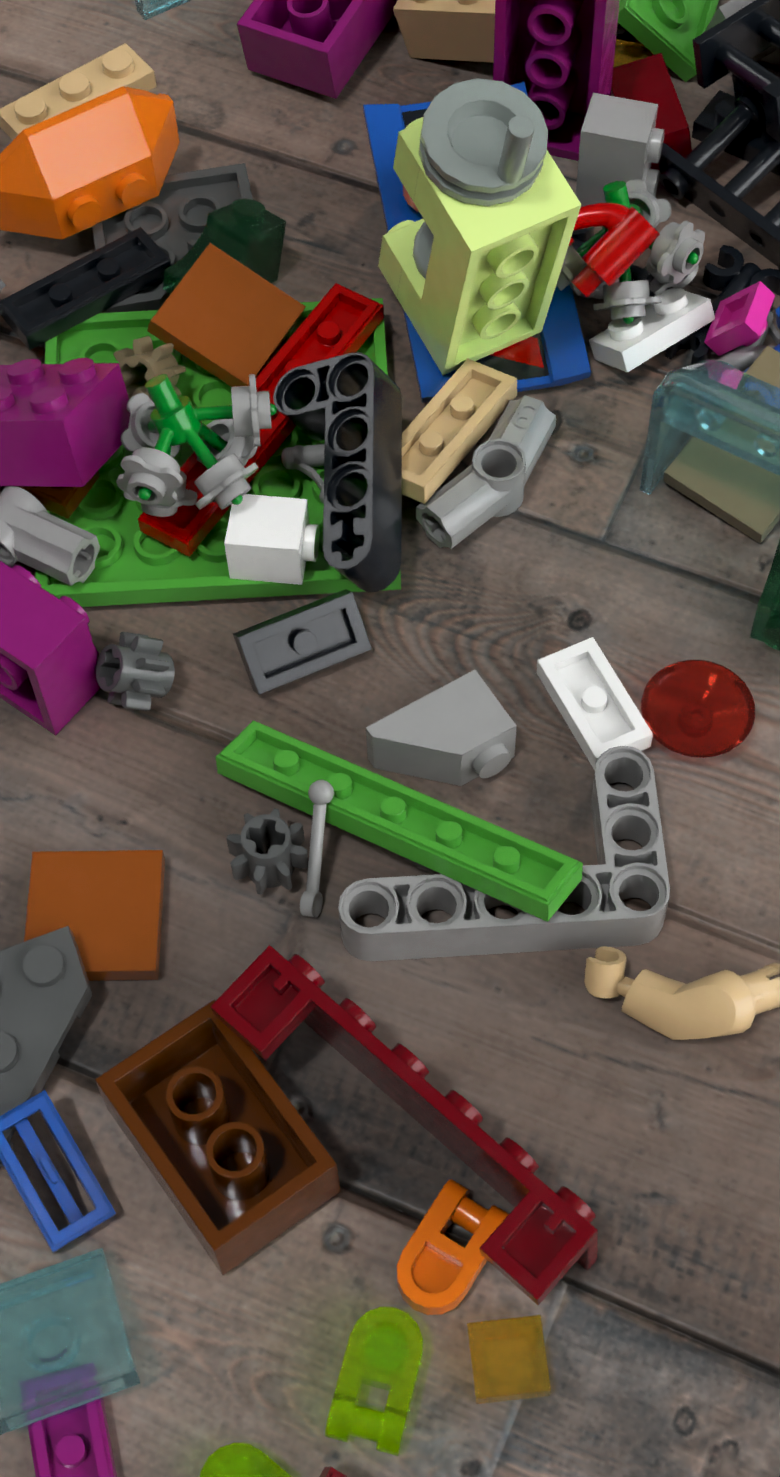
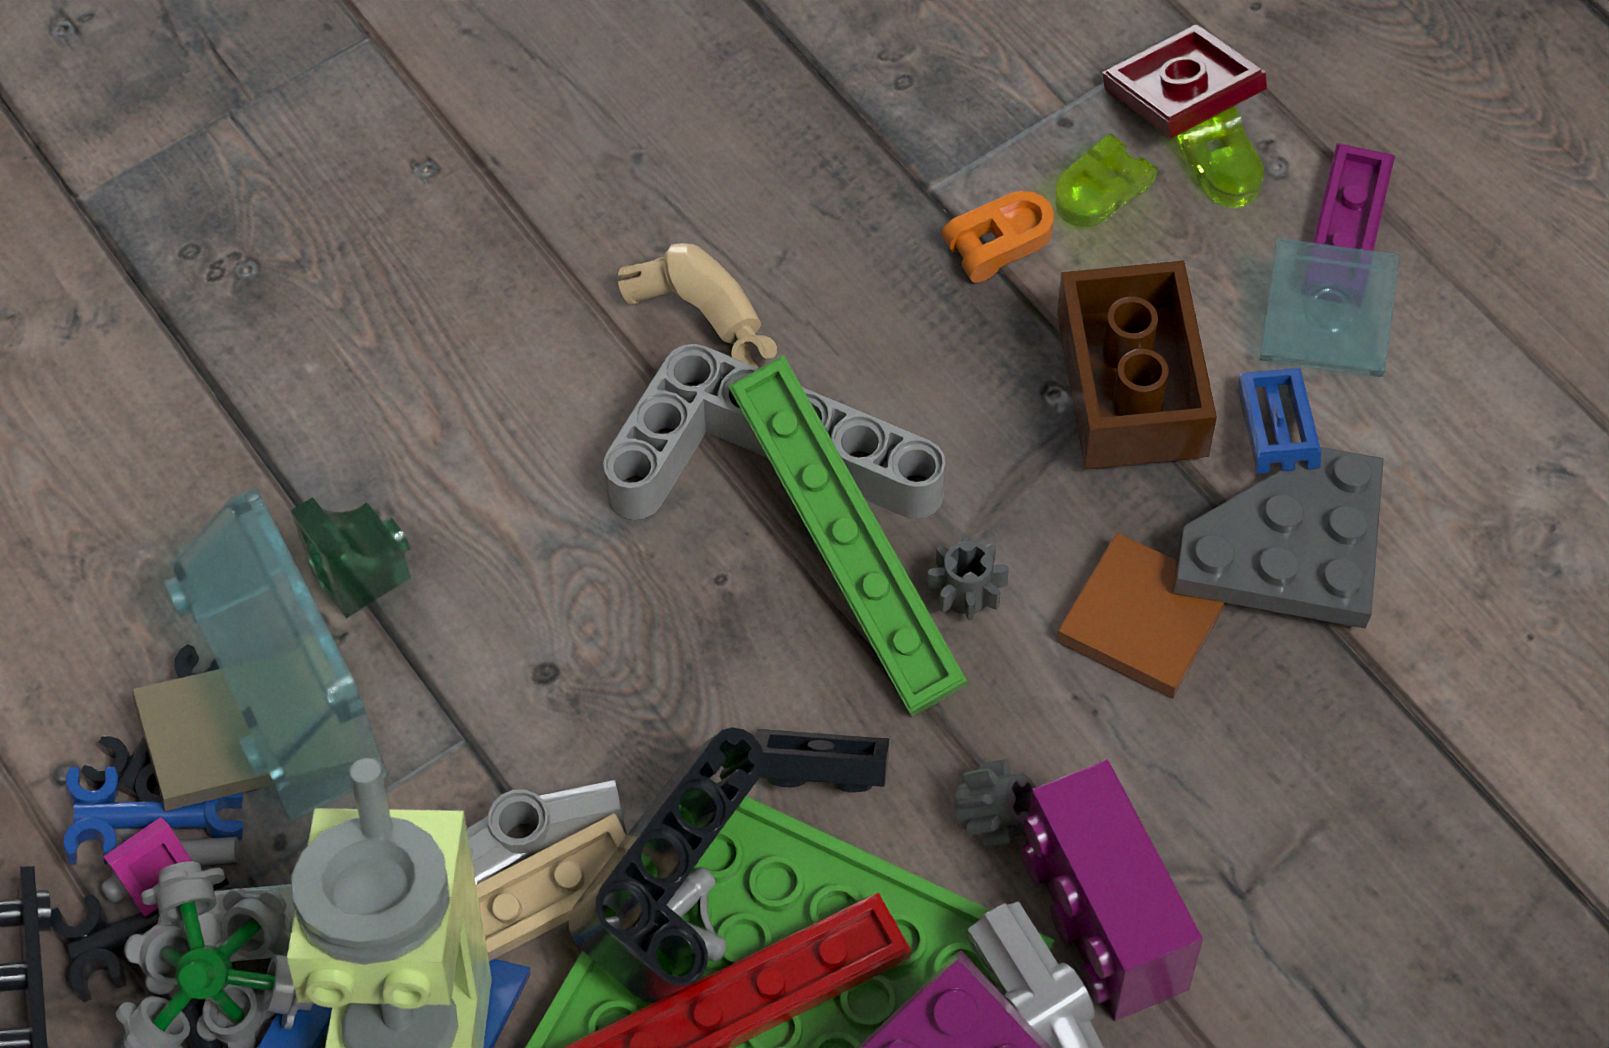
camera: 150 degrees left, 0 degrees up
(222, 446) = (865, 932): light grey plant -> none
(270, 539) = (796, 841): white brick -> none
(311, 901) = (901, 565): light grey hinge -> none
(446, 735) = (750, 600): light grey slope -> none
(508, 1359) = (1001, 158): clear yellow tile -> none
(545, 1227) = (1008, 390): dark red bracket -> none
(592, 700) = (600, 568): white plate -> none
(617, 249) = (246, 935): red plant -> none
(698, 708) = (517, 514): clear red piece -> none

